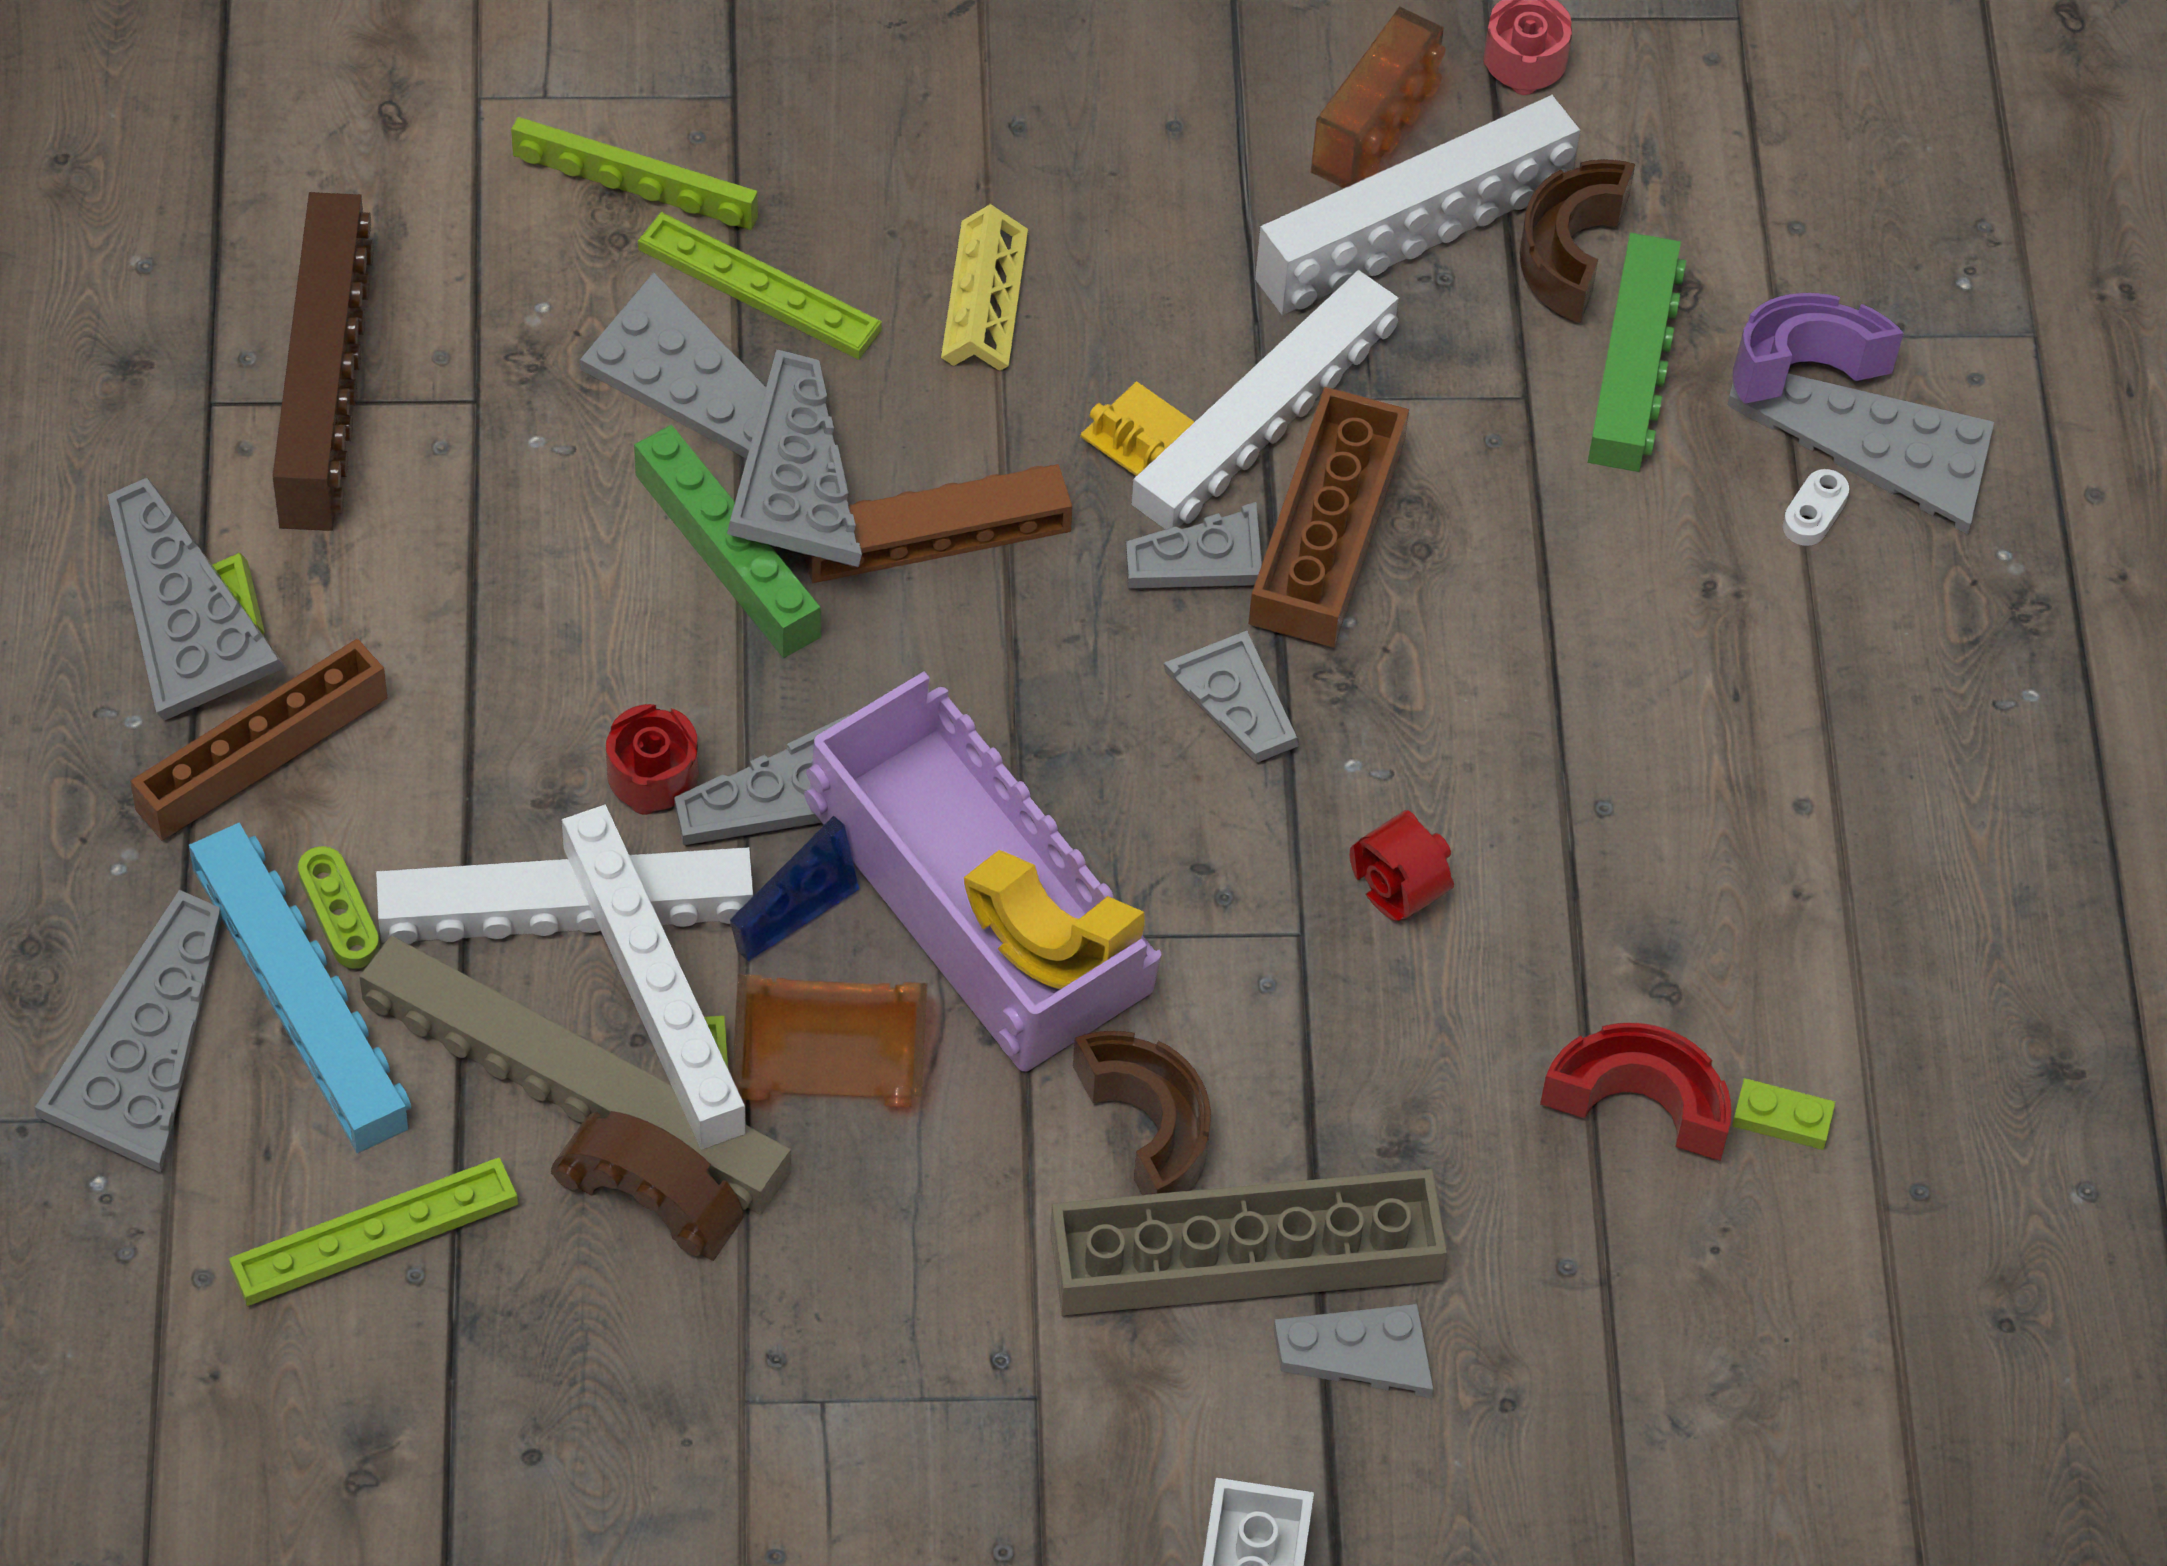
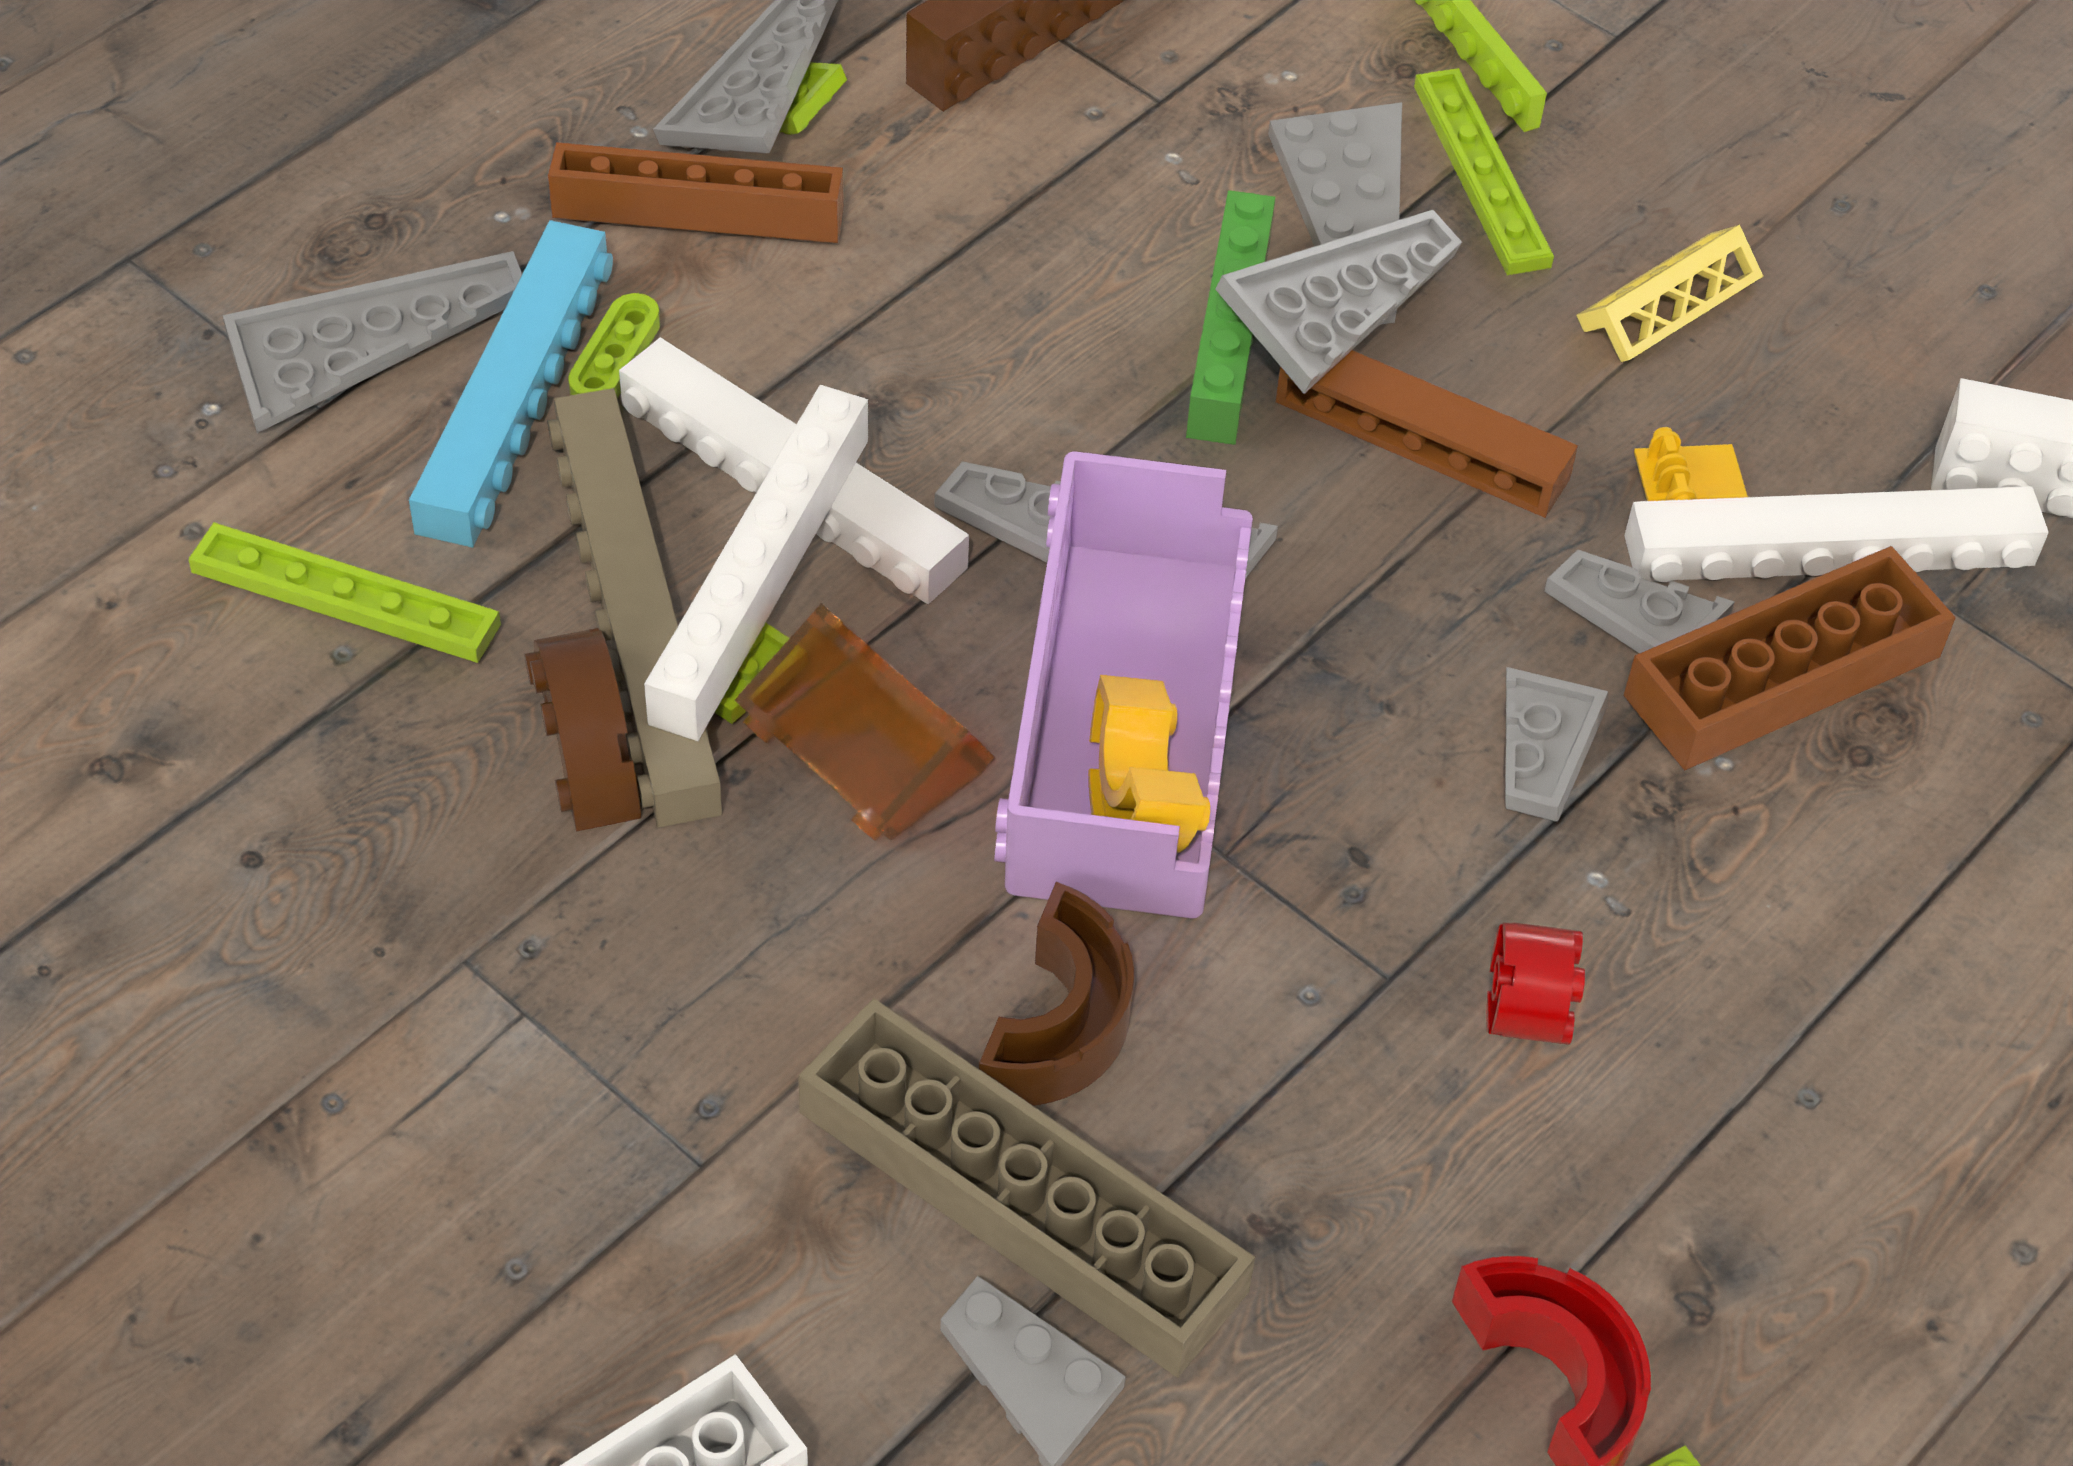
camera: 45 degrees right, 5 degrees down
(651, 757) = (976, 416): red brick -> none
(799, 892) = (971, 599): clear blue wing -> none

